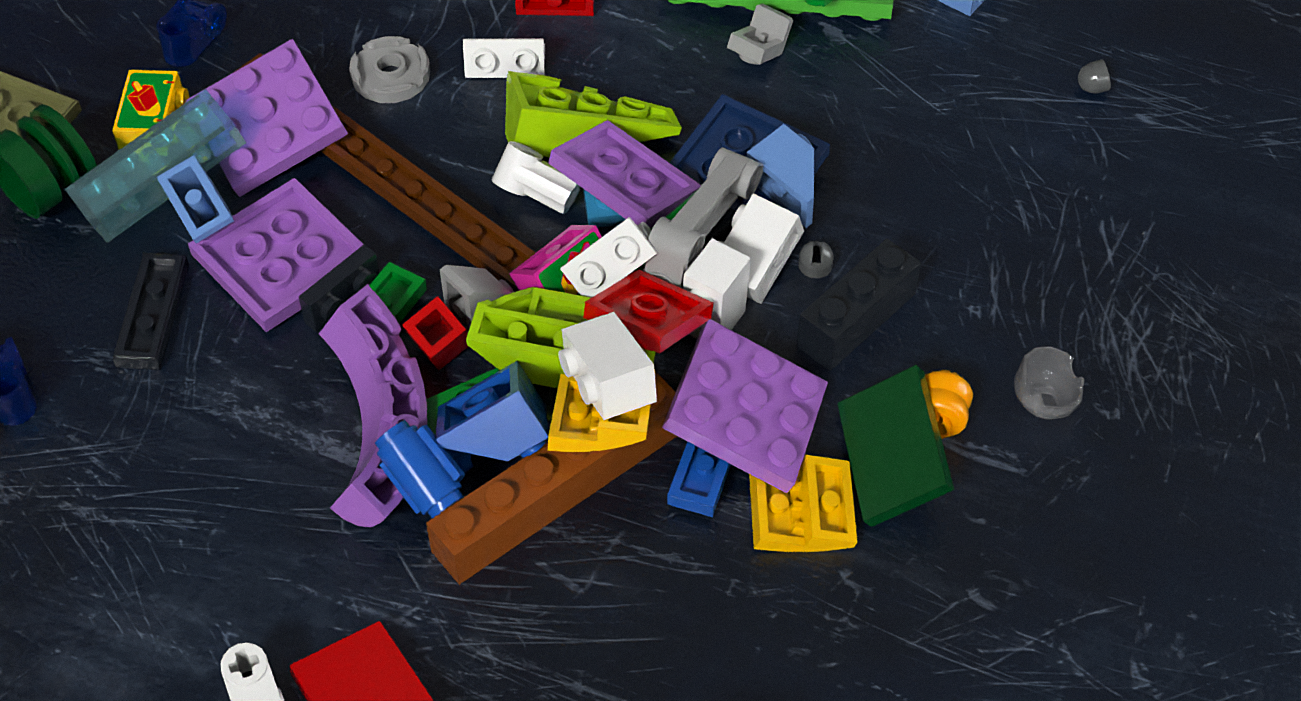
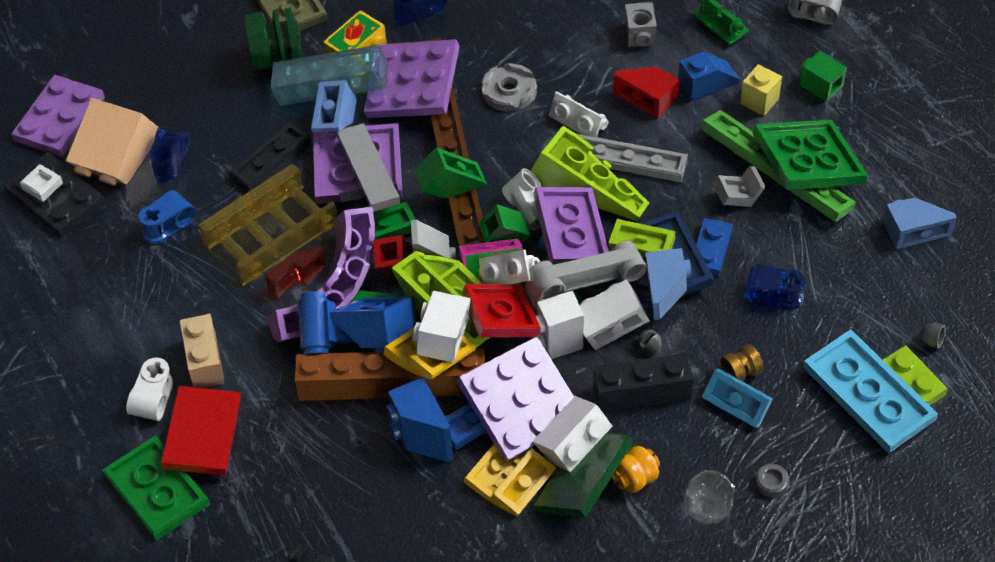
camera: 40 degrees right, 0 degrees up
(74, 463) = (168, 214): none -> blue piece
(196, 362) = (254, 204): none -> clear yellow fence
(283, 601) = (202, 351): none -> tan brick
(311, 244) = (368, 167): none -> light grey tile
(318, 420) = (300, 266): none -> clear red slope
(421, 199) = (448, 174): none -> green slope
(539, 221) = (504, 224): none -> green brick
(620, 66) = (639, 159): none -> light grey tile
(657, 505) = (419, 421): none -> blue slope
(698, 147) = (644, 237): none -> lime plate
(782, 104) = (713, 243): none -> blue plate
(843, 406) = (572, 433): none -> white brick
(892, 121) = (772, 285): none -> clear blue piece
(940, 221) = (743, 363): none -> pearl gold wheel
(971, 259) = (737, 398): none -> dark azure plate
(1083, 326) = (772, 480): none -> flat silver tile
(1091, 170) = (870, 391): none -> medium azure plate
(1115, 133) = (916, 375): none -> lime plate

